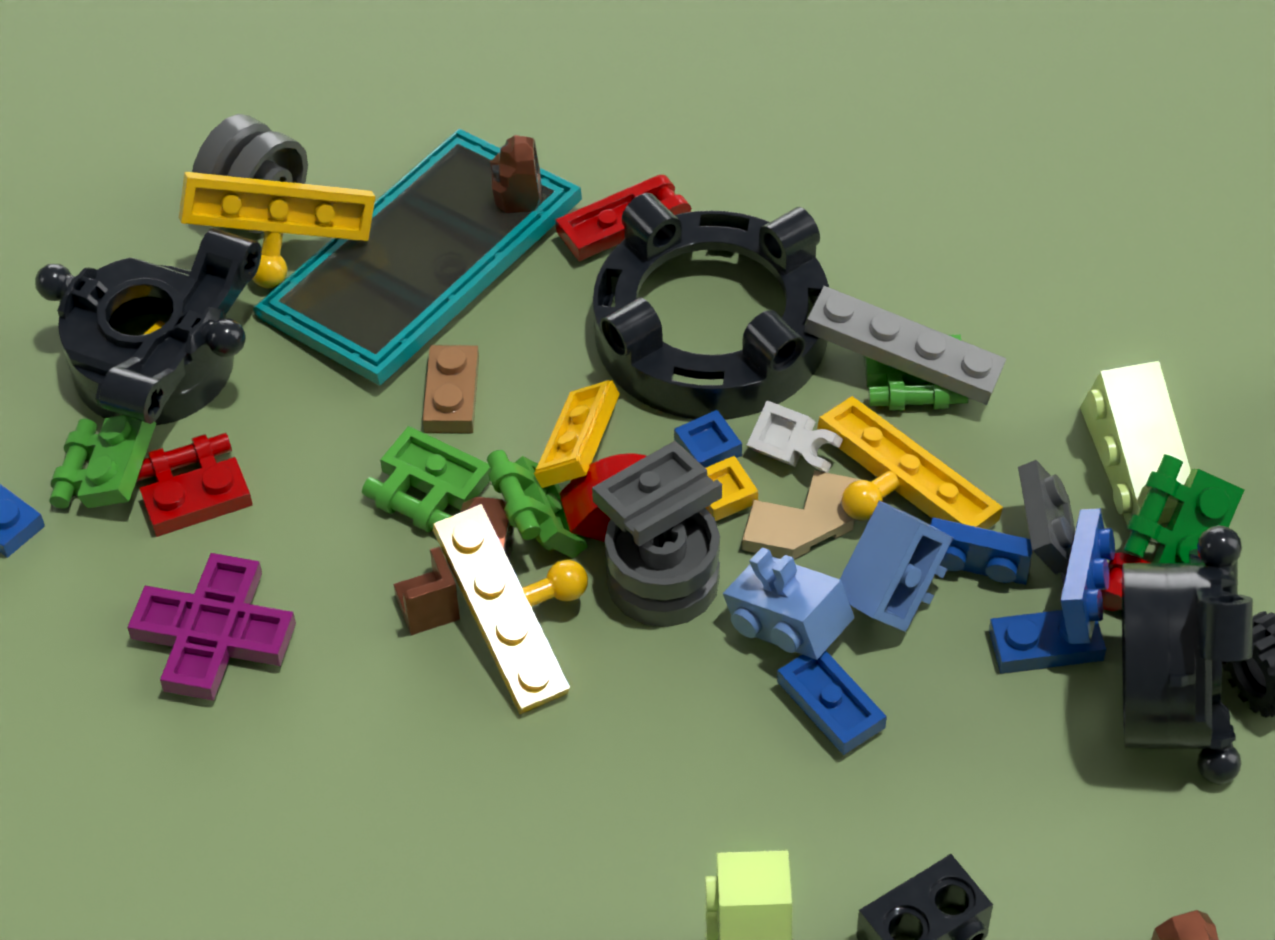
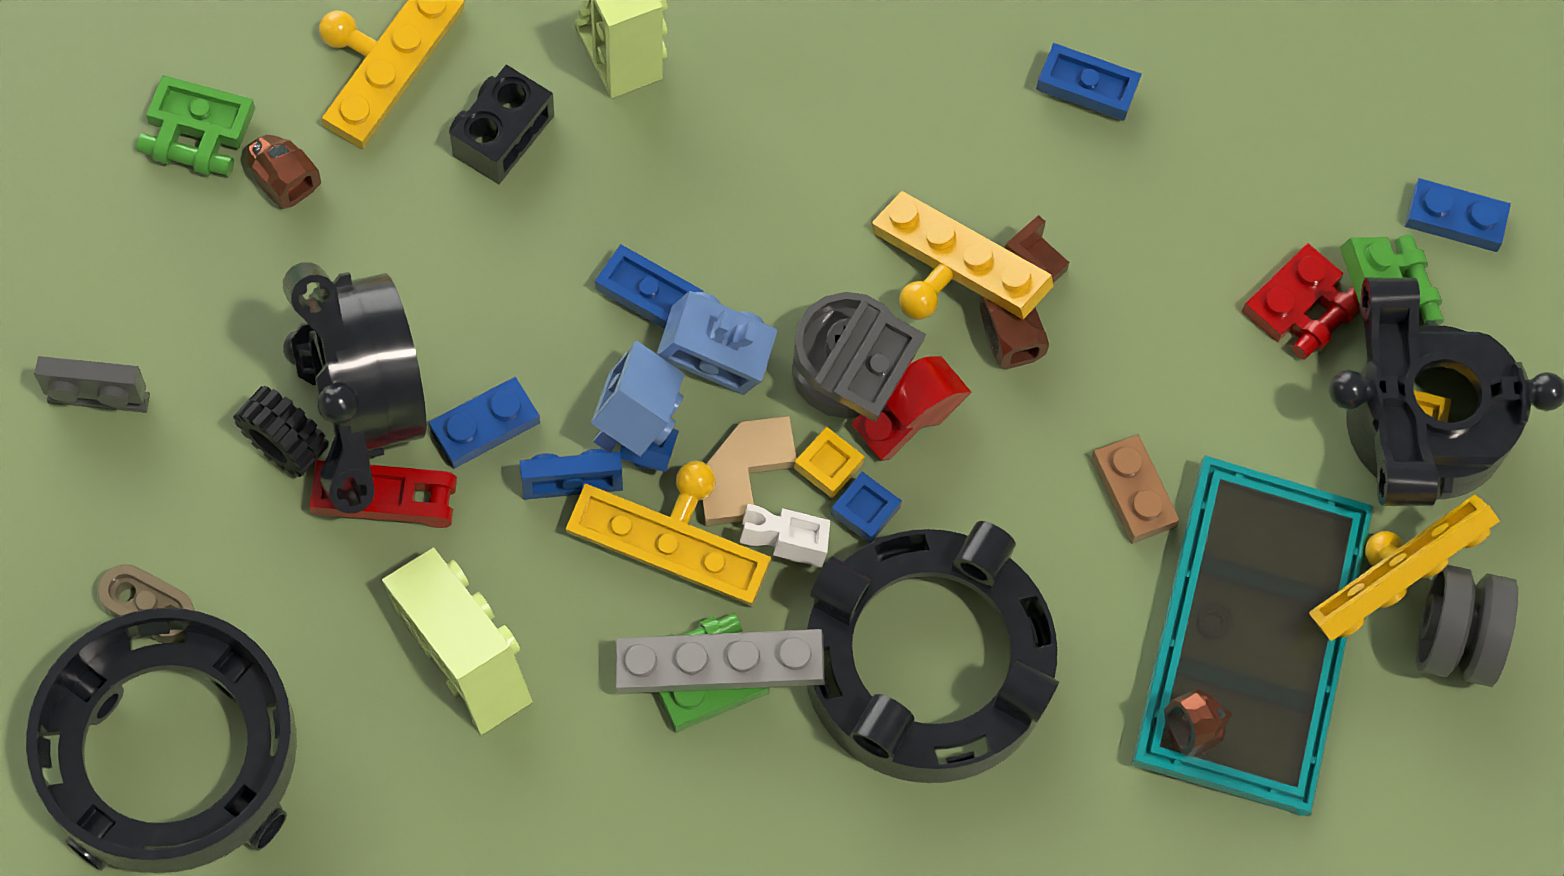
camera: 150 degrees right, 15 degrees up
(211, 626) = (1196, 171): magenta plate -> none
(261, 750) = (1088, 81): none -> blue plate
(432, 467) = (1097, 386): bright green plate -> none
(529, 507) = (992, 386): bright green plate -> none
(577, 434) = (984, 449): yellow tile -> none
(600, 223) = (1077, 751): red plate -> none
(1047, 516) = (515, 519): dark grey plate -> none
(1087, 576) = (463, 461): blue plate -> none
(1201, 504) = (390, 550): green plate -> none

